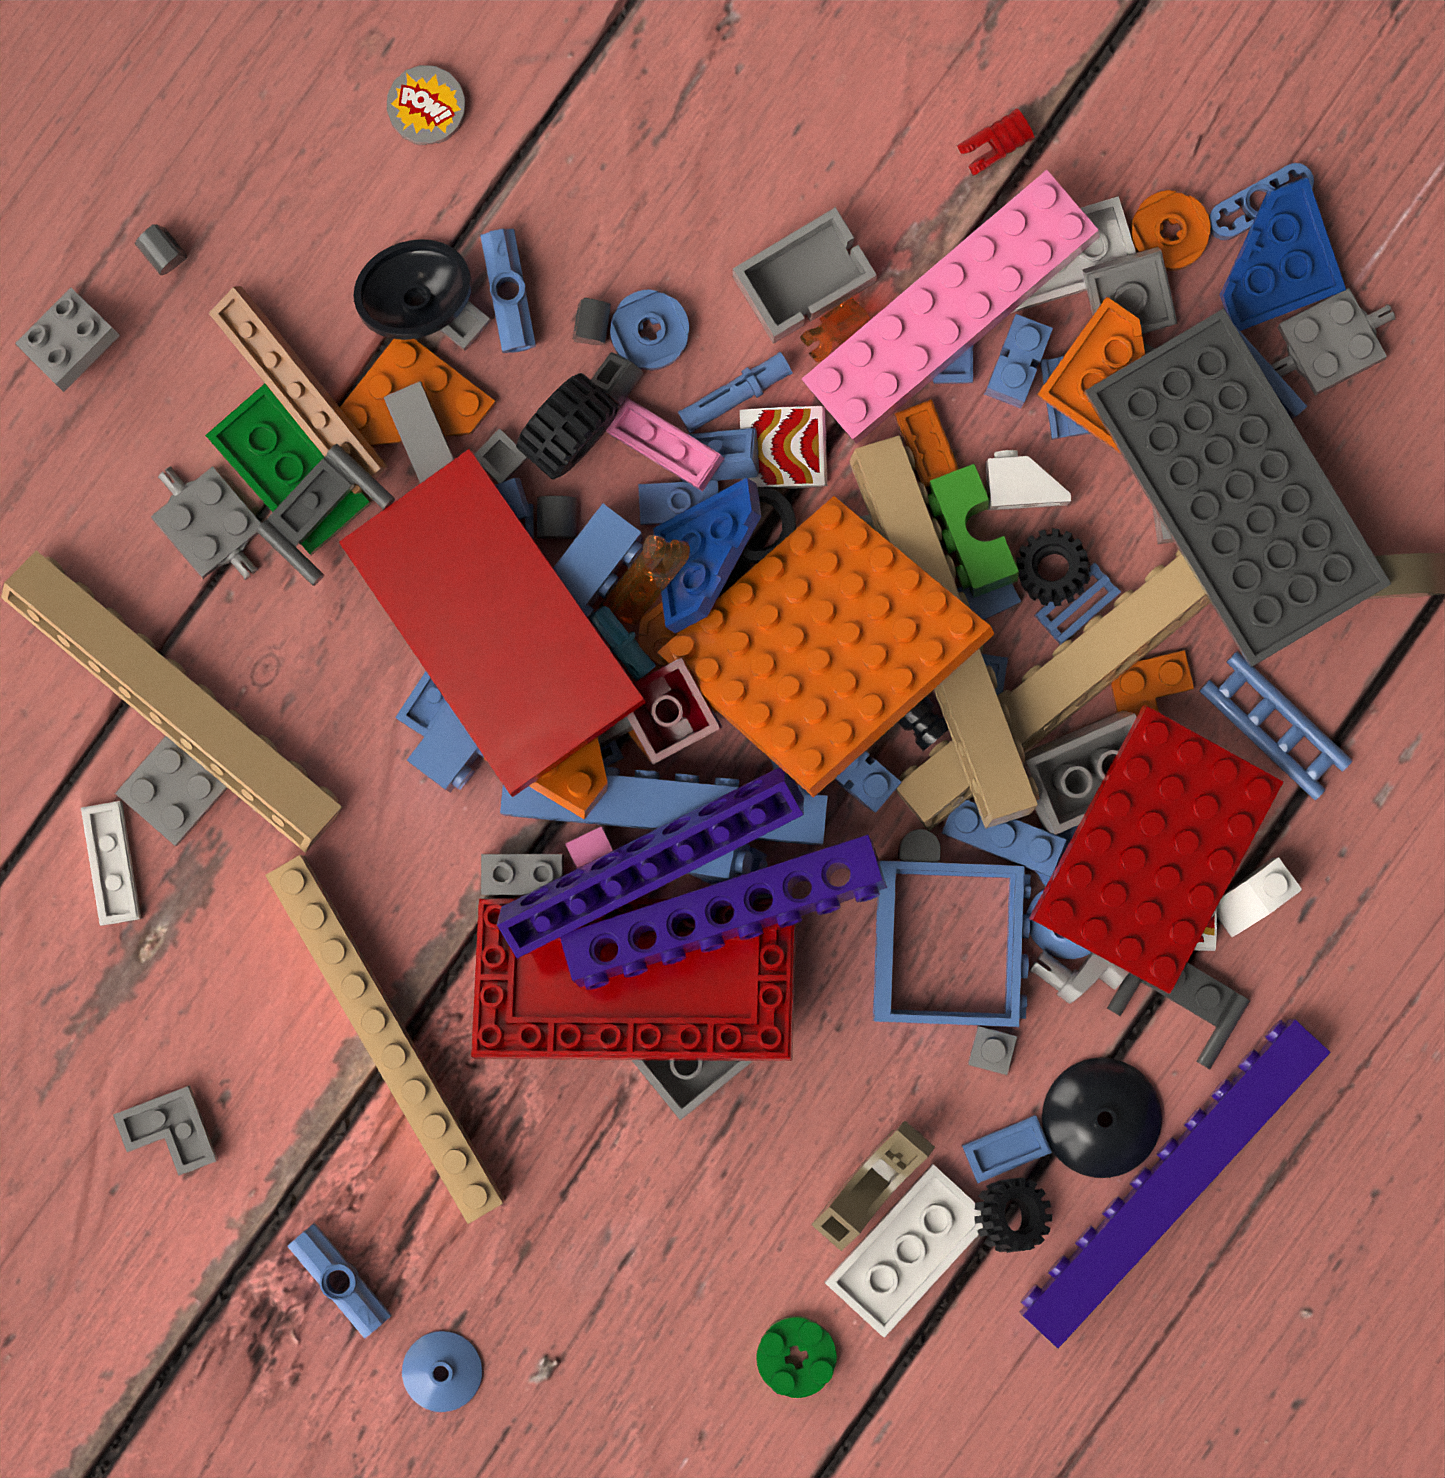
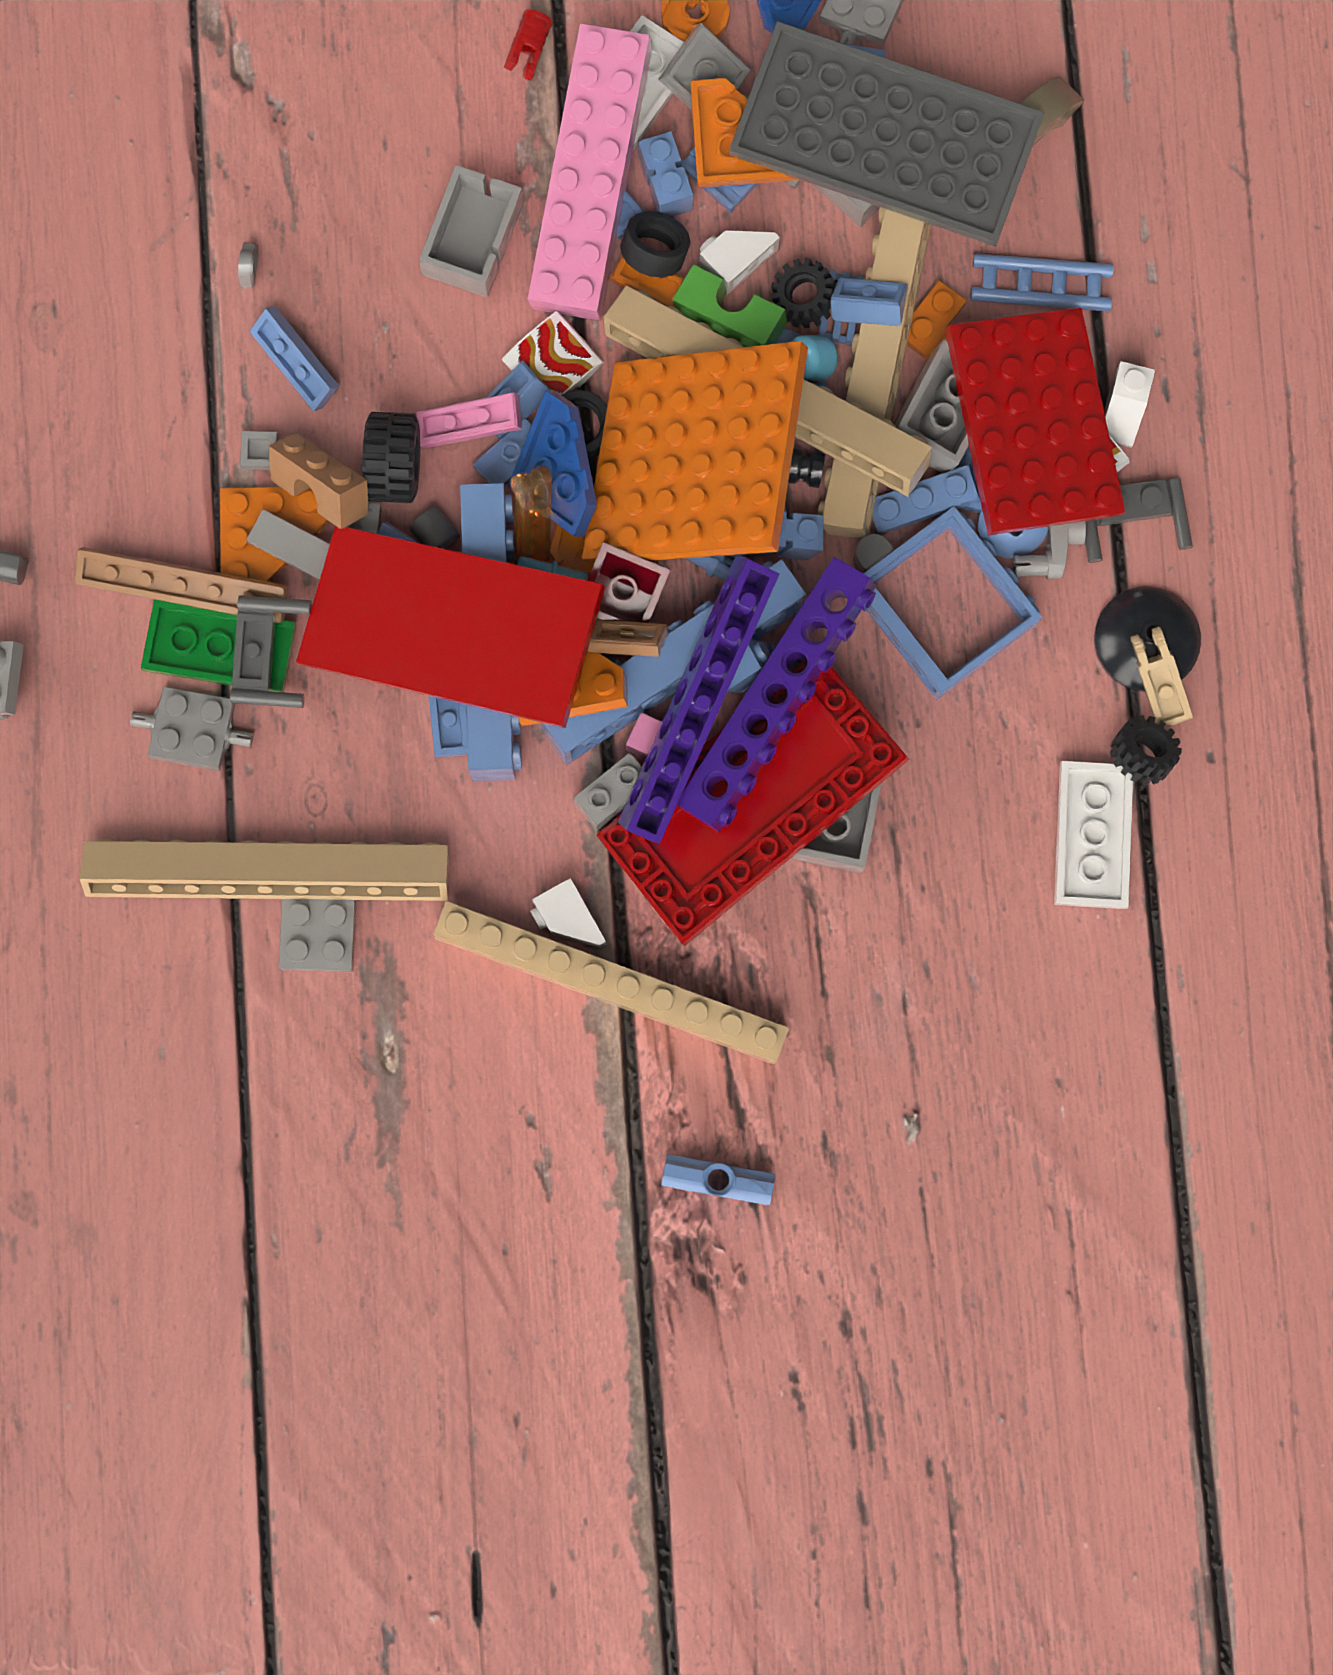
camera: 40 degrees left, 5 degrees down
(110, 863) = (315, 1021): white tile -> none
(176, 1120) = (508, 1162): light grey plate -> none
(396, 949) = (566, 915): none -> white slope
(412, 289) = (206, 452): black dish -> none
(426, 105) = (113, 325): tile -> none
(445, 1350) = (822, 1190): medium blue dish -> none
(495, 419) = (302, 465): none -> medium nougat arch
(504, 266) = (258, 390): medium blue piece -> none
(558, 264) = (294, 358): none -> medium blue plate
(587, 144) = (247, 264): none -> light grey tile
(591, 322) = (350, 379): dark grey brick -> none
(617, 377) = (399, 398): dark grey brick -> none
(631, 760) = (628, 638): none -> medium nougat tile
(657, 309) = (388, 335): medium blue plate -> none
(742, 388) = (493, 337): medium blue pin -> none
(776, 1345) = (1099, 968): green plate -> none
(835, 326) = (520, 250): clear orange plate -> none
(872, 1185) = (1031, 805): dark tan arch -> none
(976, 404) = (648, 260): none -> black tyre
(992, 1050) = (1035, 653): light grey plate -> none
(1006, 1149) = (1101, 712): medium blue tile -> none
(1014, 631) = (820, 359): none -> medium azure head
(1077, 1168) = (1162, 681): none -> tan hinge
(1100, 623) = (868, 301): none -> medium blue slope
(1173, 1182) = (1234, 641): dark purple brick -> none

